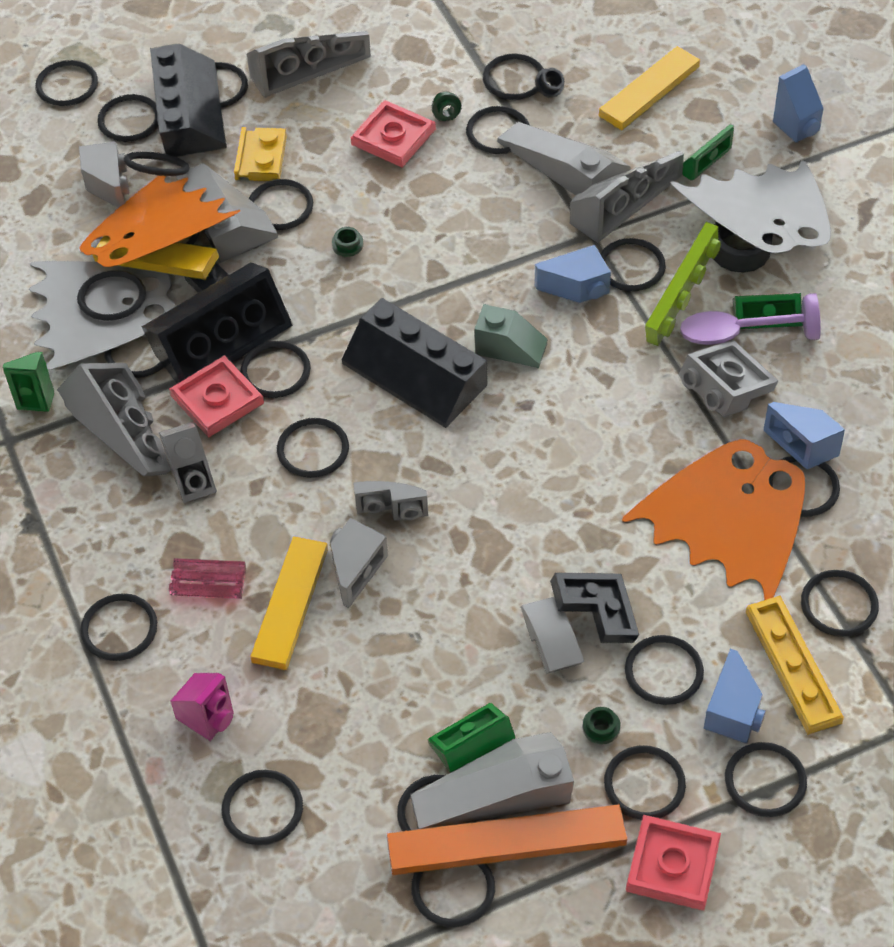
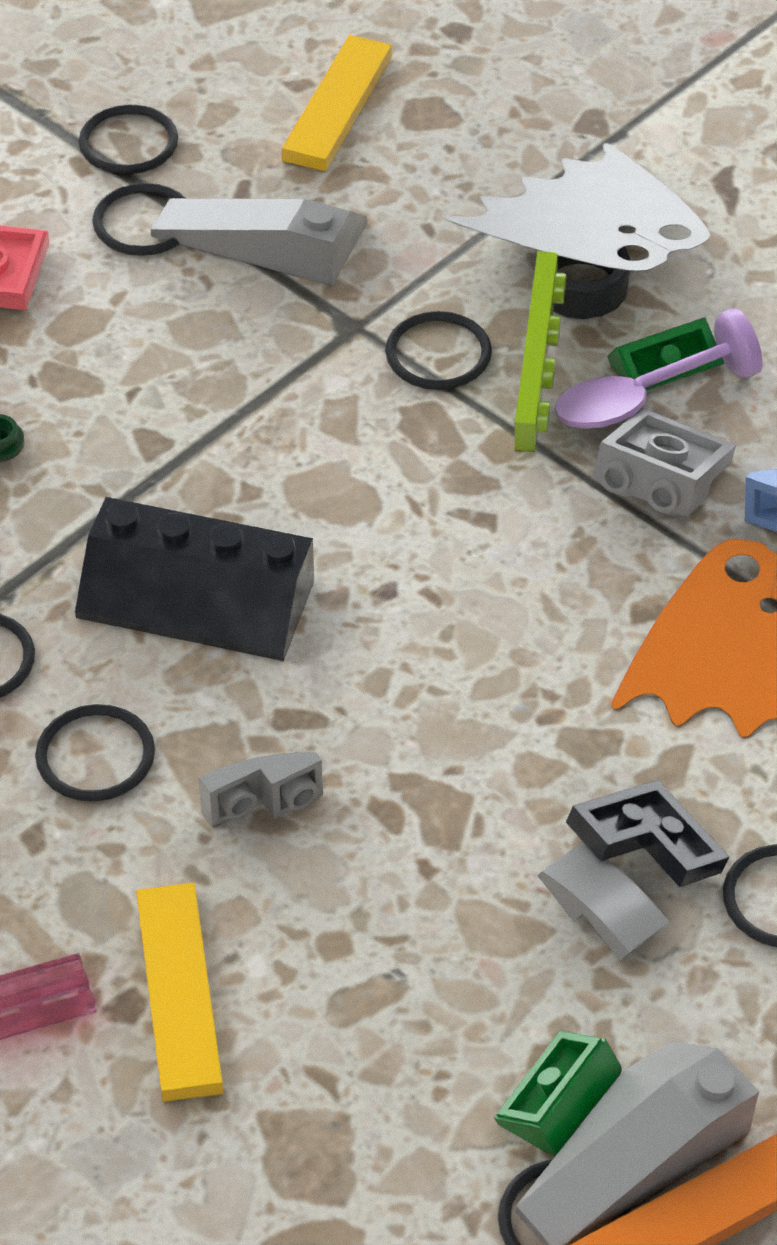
camera: 25 degrees left, 5 degrees down
(204, 704) = (130, 1184): dark pink slope -> none
(356, 557) = (250, 889): light grey slope -> none
(445, 99) = (42, 200): dark green plate -> none
(508, 337) = (318, 500): sand green slope -> none
(552, 76) = (190, 131): black plate -> none
(574, 275) = (369, 387): medium blue slope -> none
(603, 716) = (744, 991): dark green plate -> none
(616, 199) = (375, 262): light grey wedge -> none
(708, 153) = (468, 168): green slope -> none
(798, 105) = (568, 67): medium blue slope -> none

